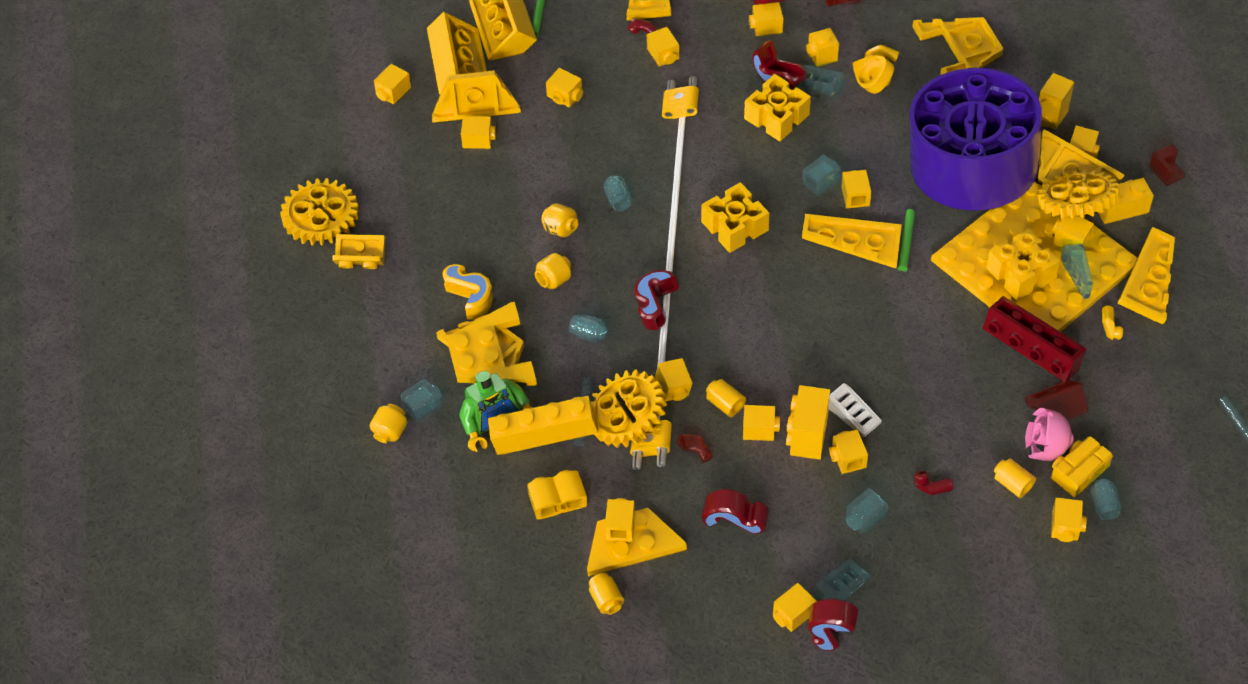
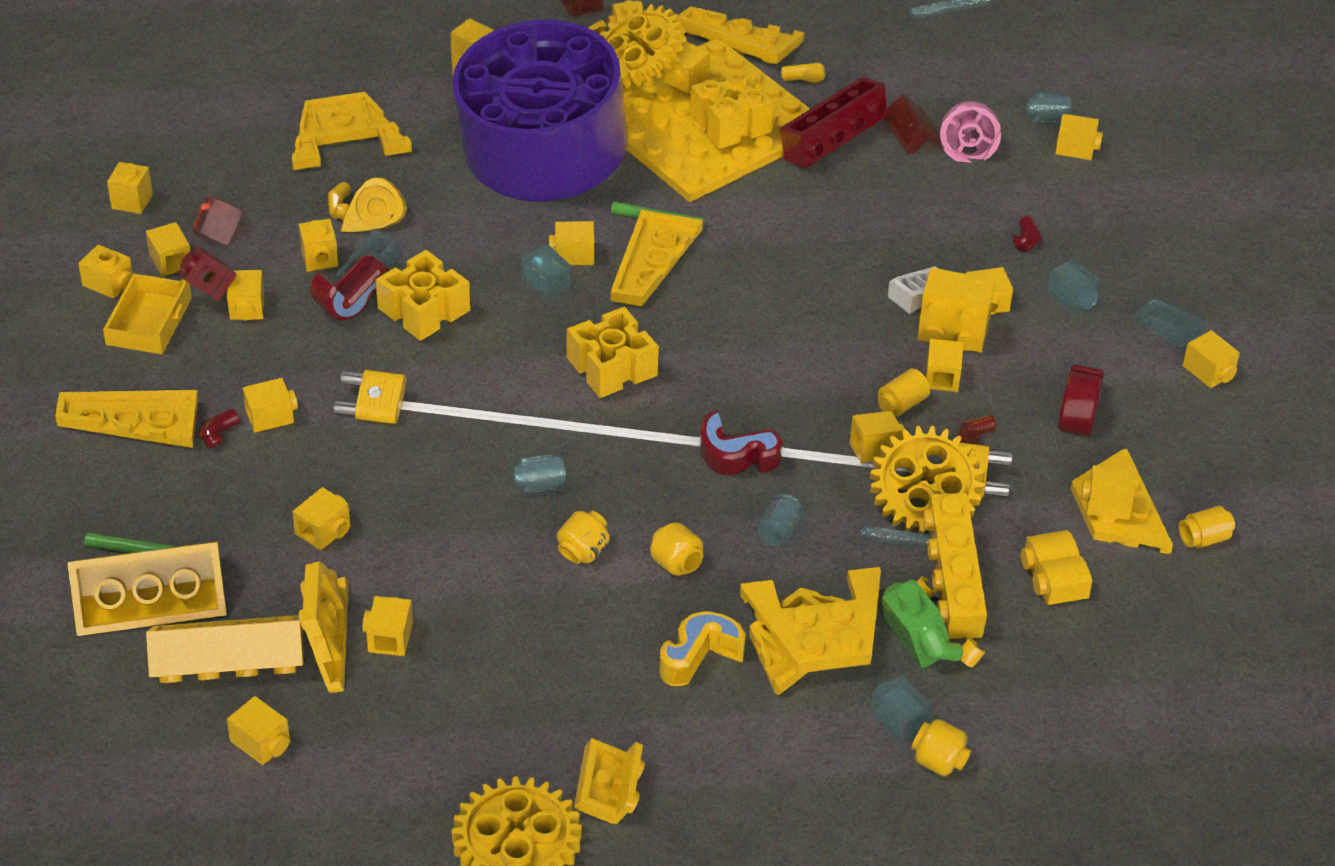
camera: 90 degrees left, 10 degrees down
(830, 617) = (1248, 313): dark red animal -> none
(1014, 477) = (1022, 167): yellow brick -> none
(1077, 266) = (735, 62): clear light blue slope -> none
(1081, 466) = (1017, 120): yellow brick -> none

